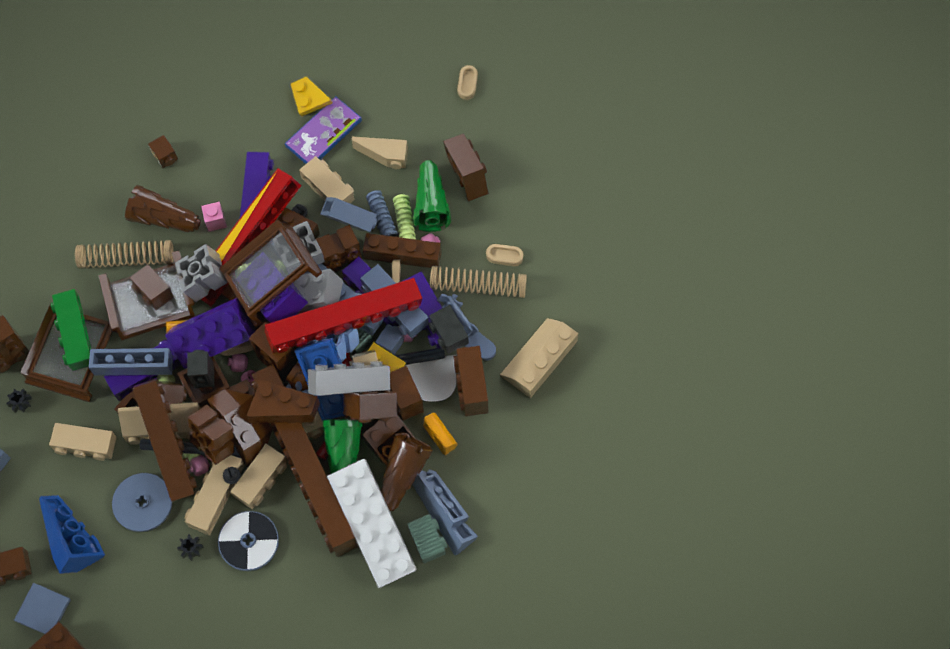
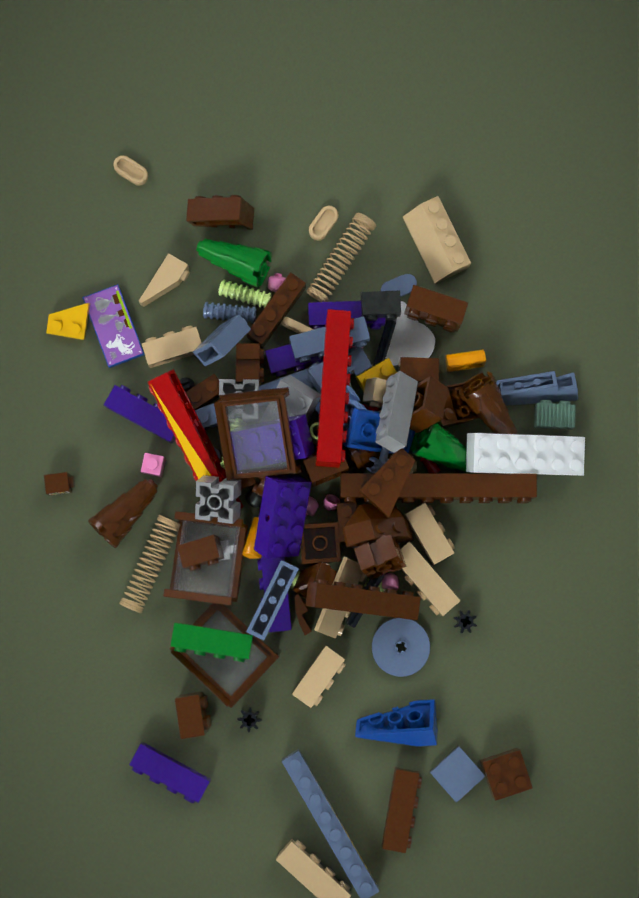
camera: 70 degrees left, 15 degrees up
(200, 369) = (316, 539): pearl dark grey brick -> none
(231, 475) = (421, 556): black piece -> none
(259, 552) = (488, 582): piece -> none
(455, 305) = (351, 291): sand blue bar -> none

